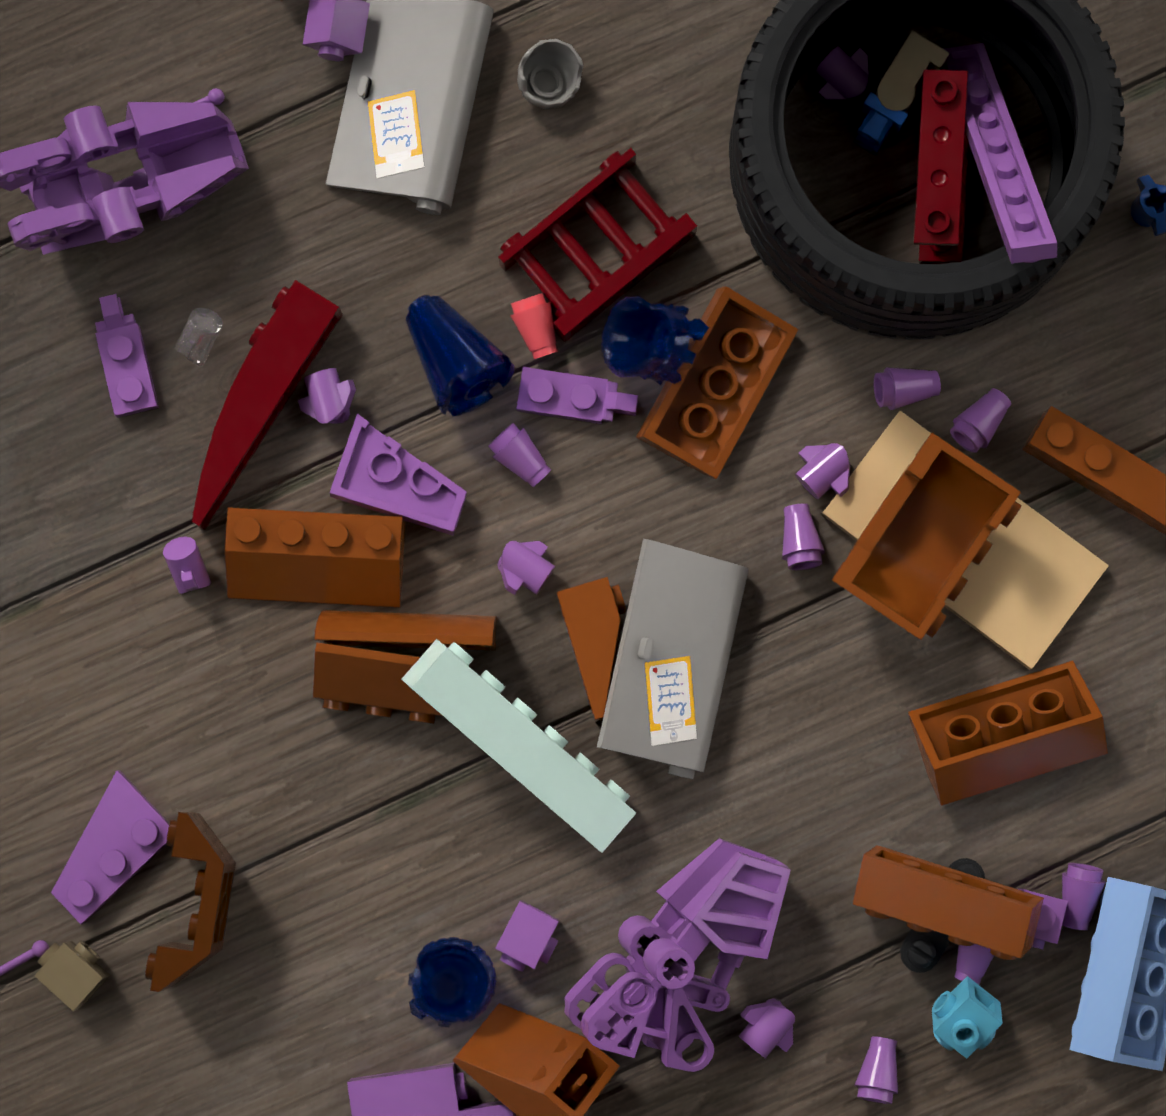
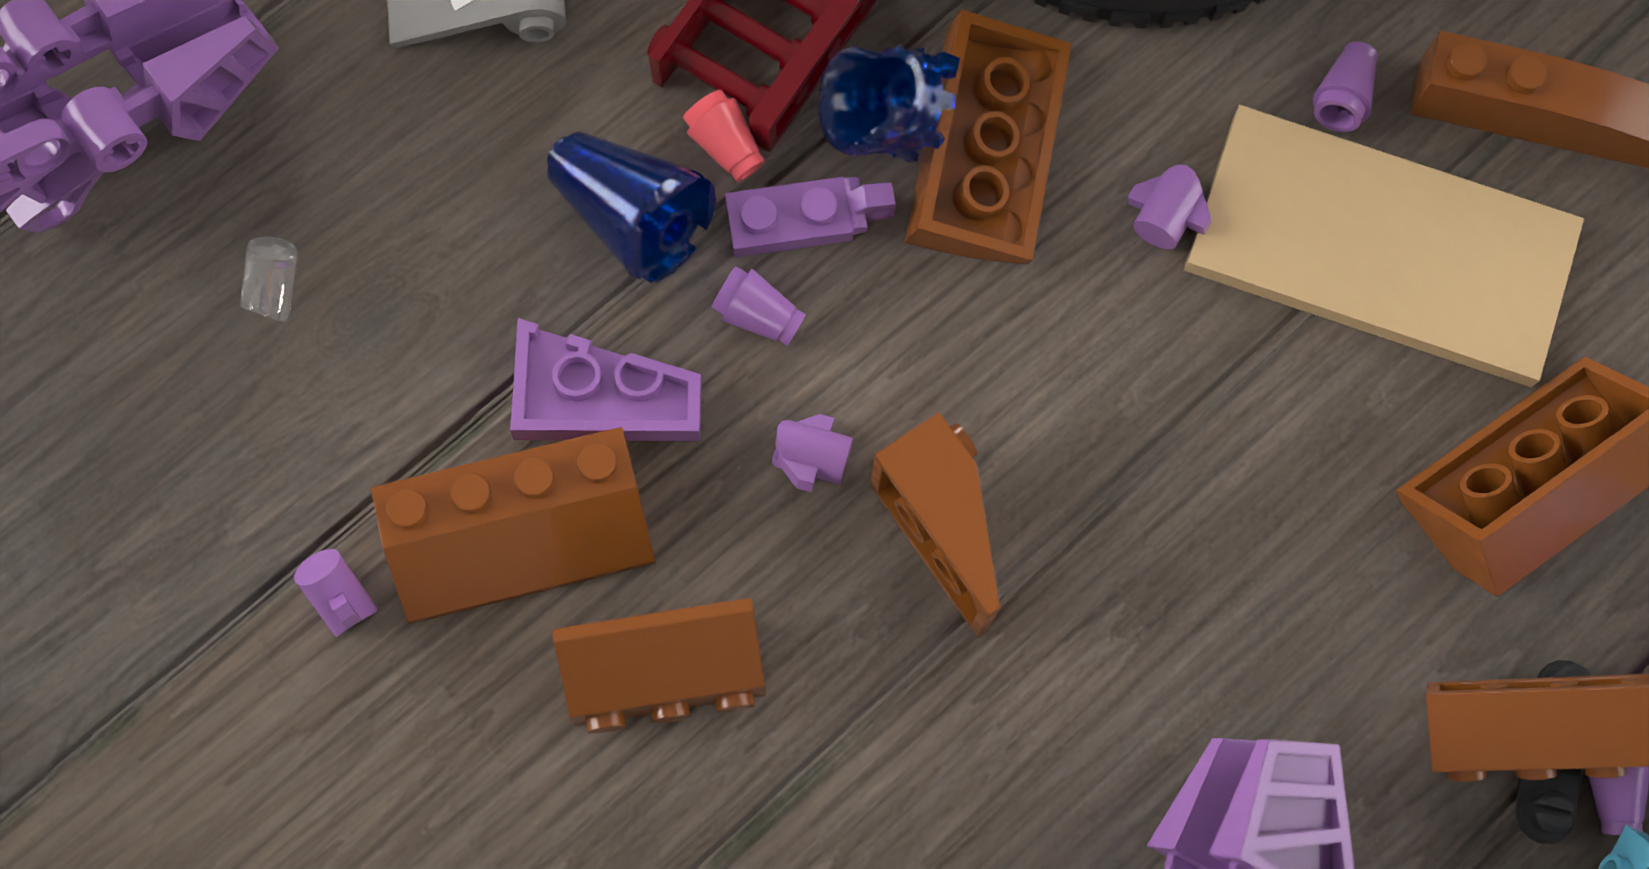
camera: 25 degrees left, 10 degrees down
(124, 360) = (174, 344): medium lavender hinge -> none
(261, 389) = (376, 325): dark red slope -> none
(328, 397) = (471, 307): medium lavender piece -> none
(405, 629) = (694, 581): dark orange slope -> none
(518, 744) = (888, 687): light aqua brick -> none
(673, 657) = (1062, 505): light grey door -> none
(801, 540) = (1172, 305): medium lavender cone -> none
(905, 386) = (1233, 74): medium lavender cone -> none
(927, 537) = (1351, 226): dark orange cylinder -> none

